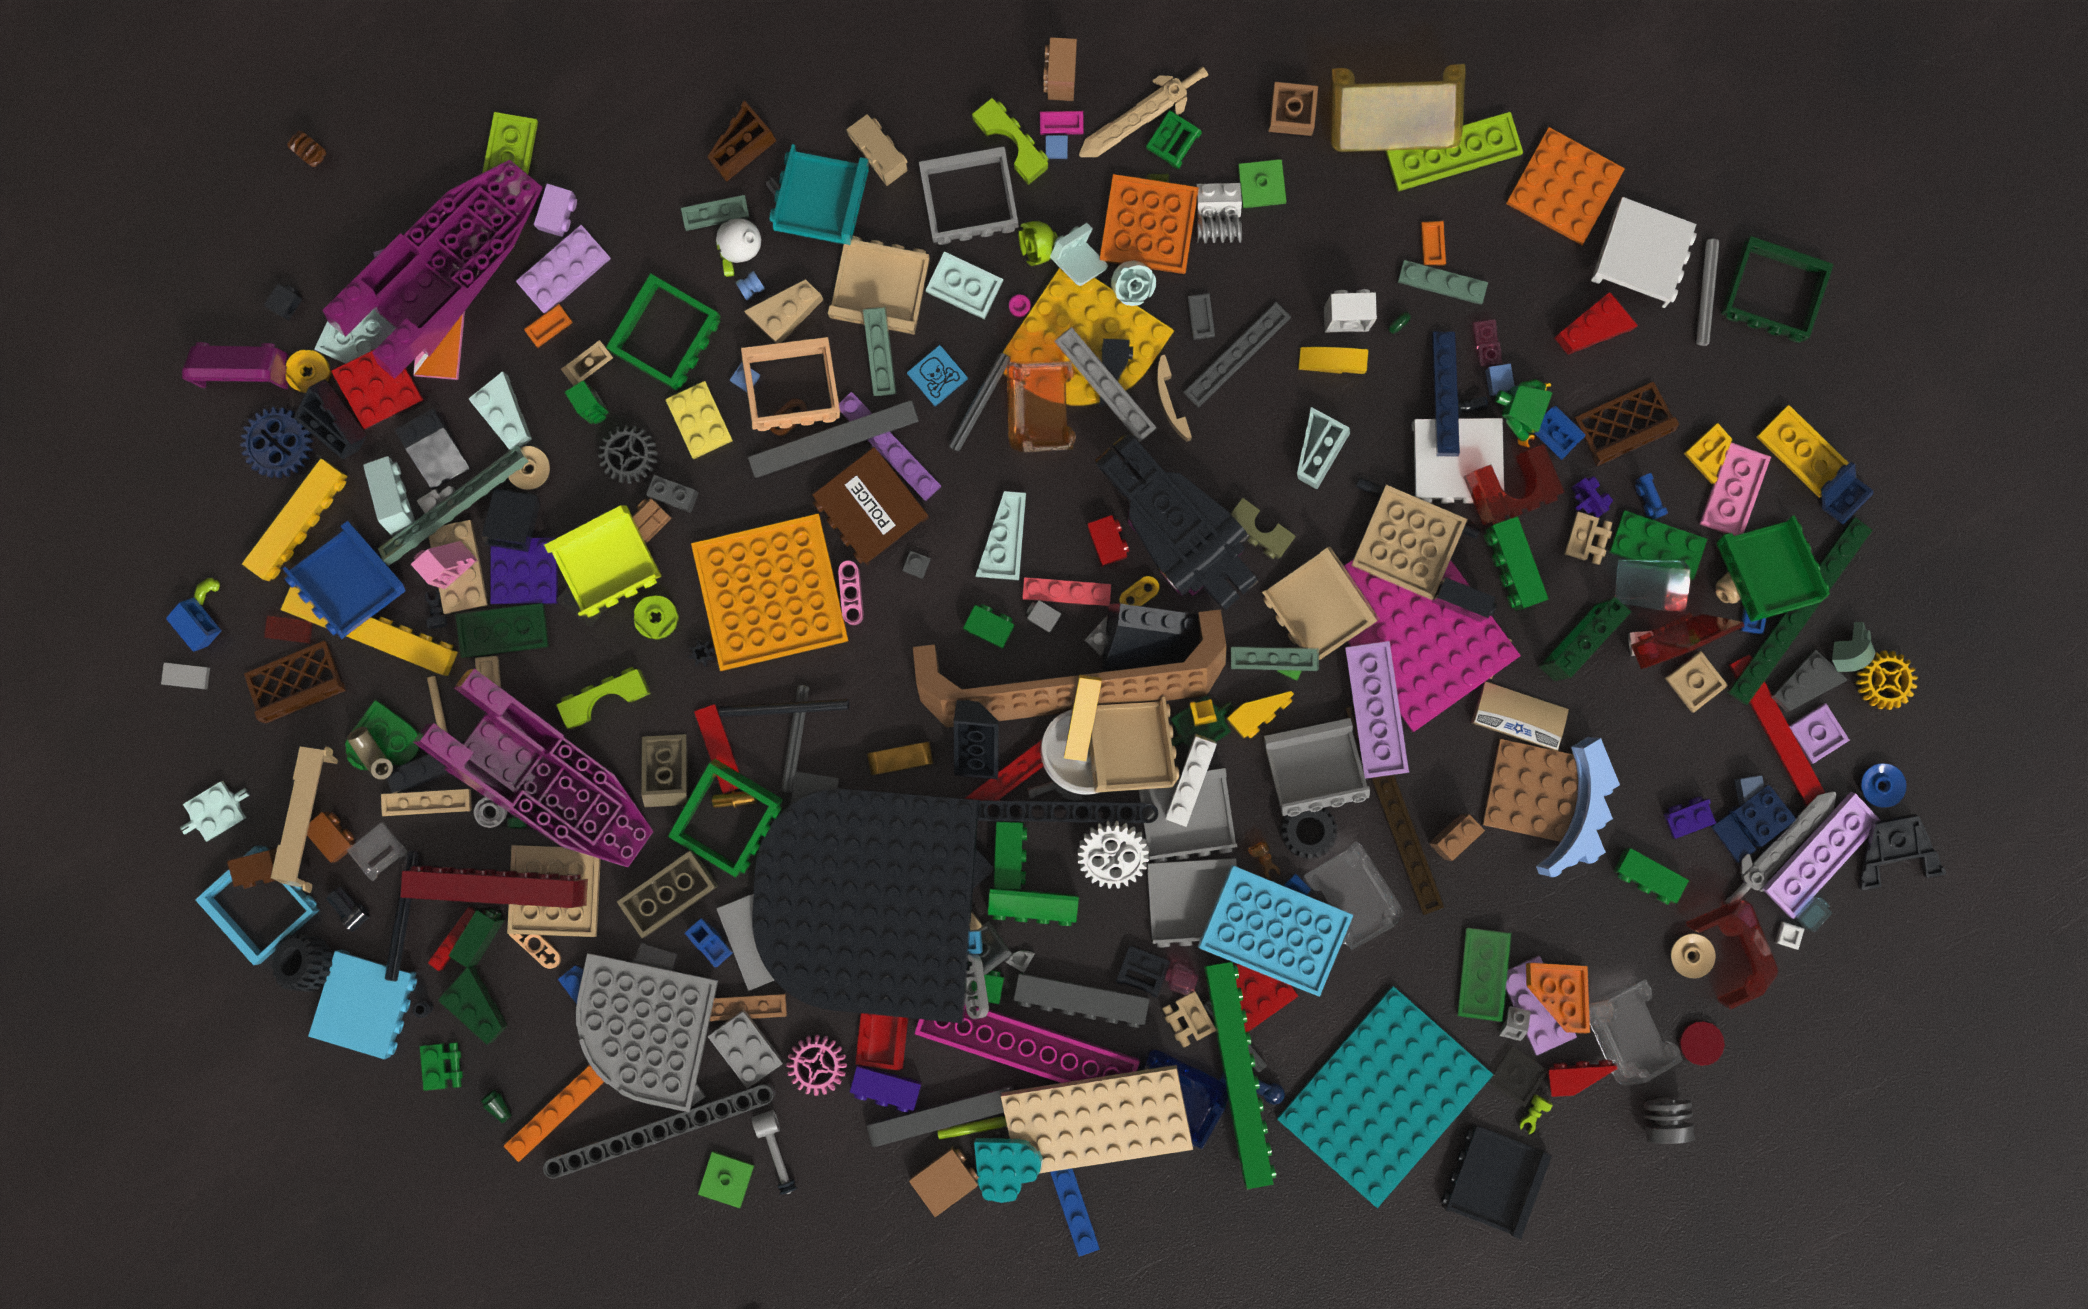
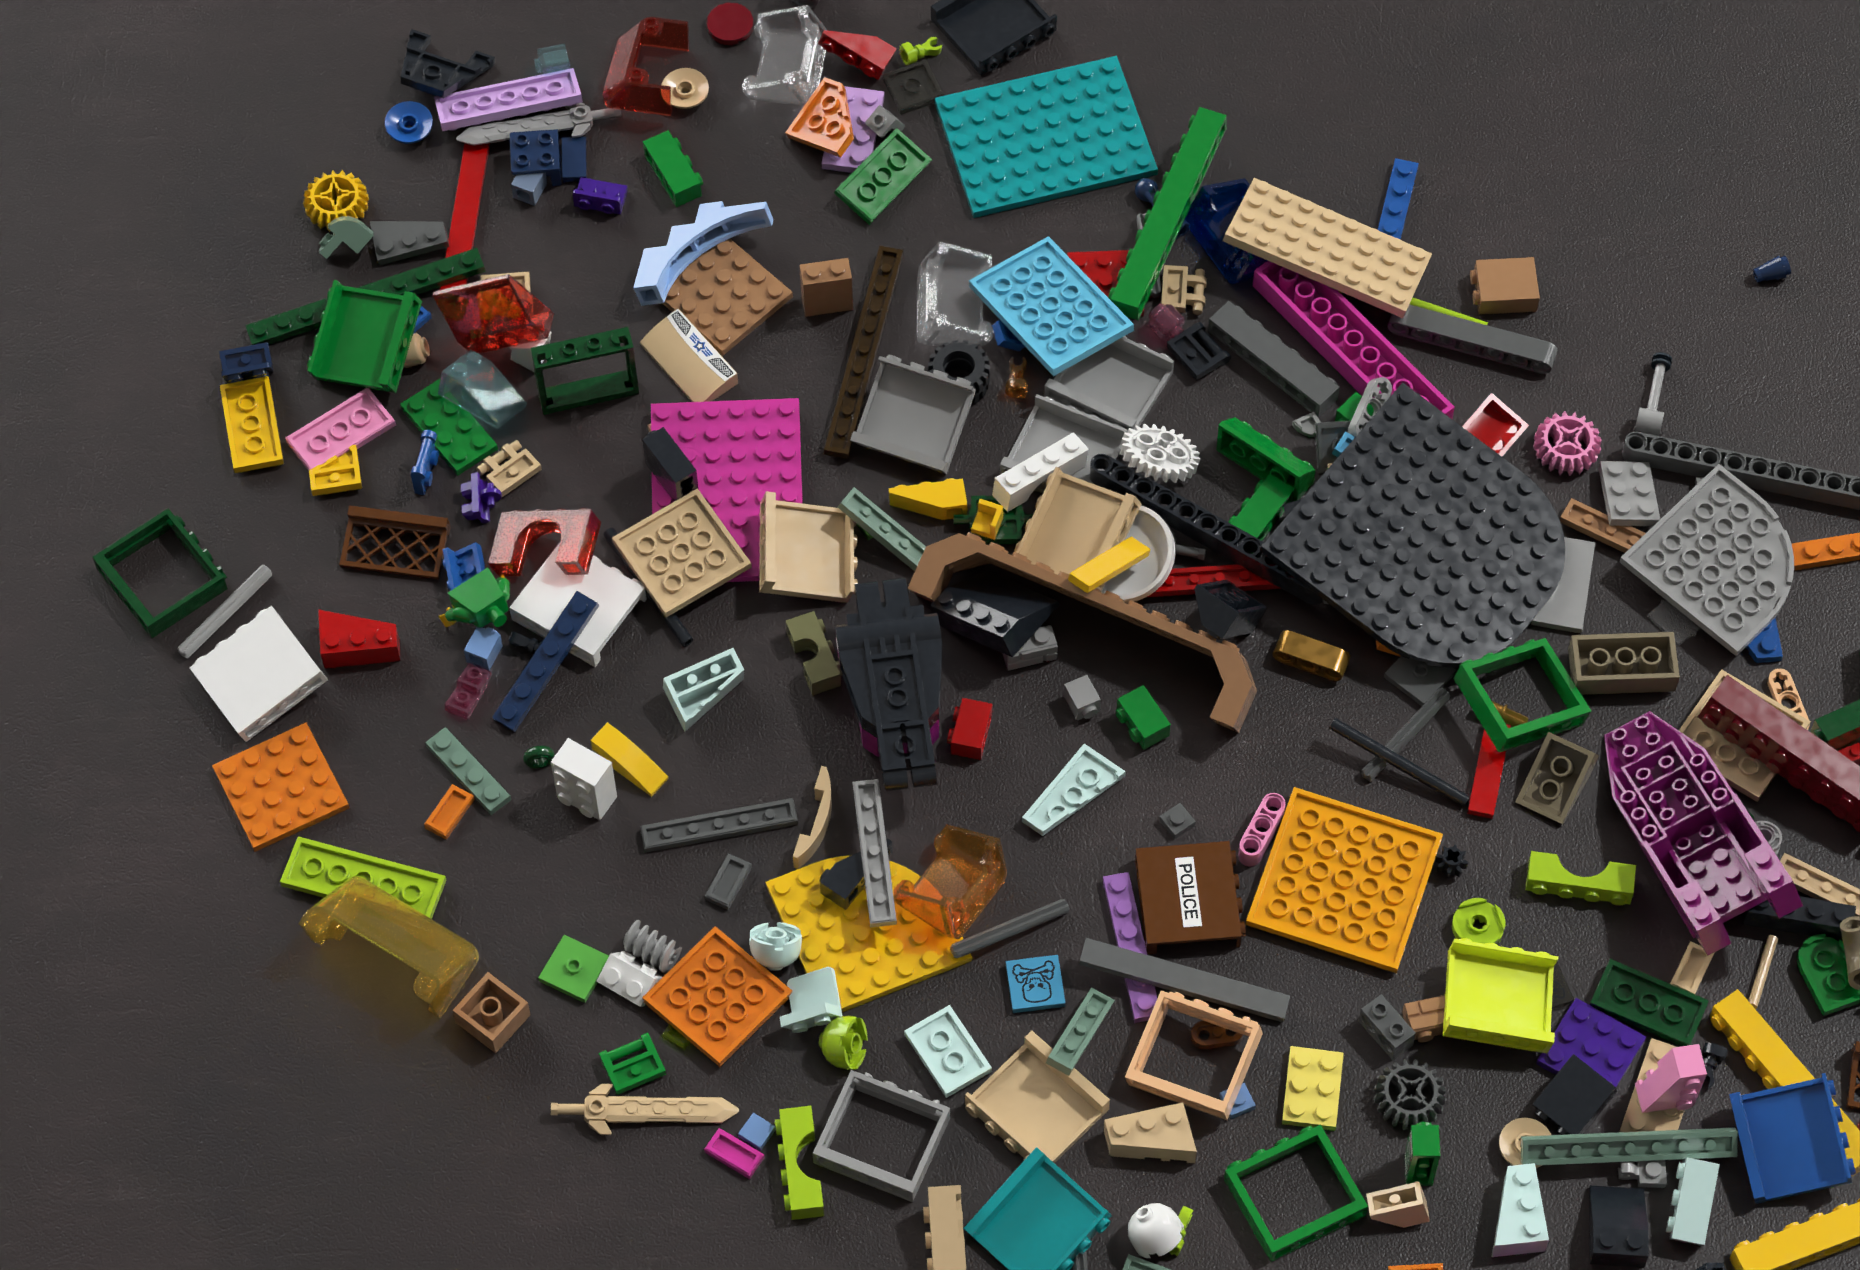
camera: 150 degrees left, 25 degrees down
(709, 942) = (1608, 601): blue brick -> none
(726, 1179) = (1717, 401): bright green plate -> none
(750, 285) = (1172, 1184): medium blue wheel -> none
(885, 1088) = (1512, 387): dark purple brick -> none
(1005, 1166) = (1439, 262): teal plate -> none
(1019, 305) = (904, 1001): dark pink tile -> none
(1060, 69) = (700, 1185): medium nougat brick -> none
(1066, 591) = (1043, 710): coral plate -> none
(1138, 593) = (973, 665): yellow plate -> none
(1377, 709) = (820, 431): lavender plate -> none
(1516, 564) = (598, 469): green brick -> none
(1789, 935) = (586, 60): white tile -> none
(1818, 733) = (430, 197): lavender tile -> none

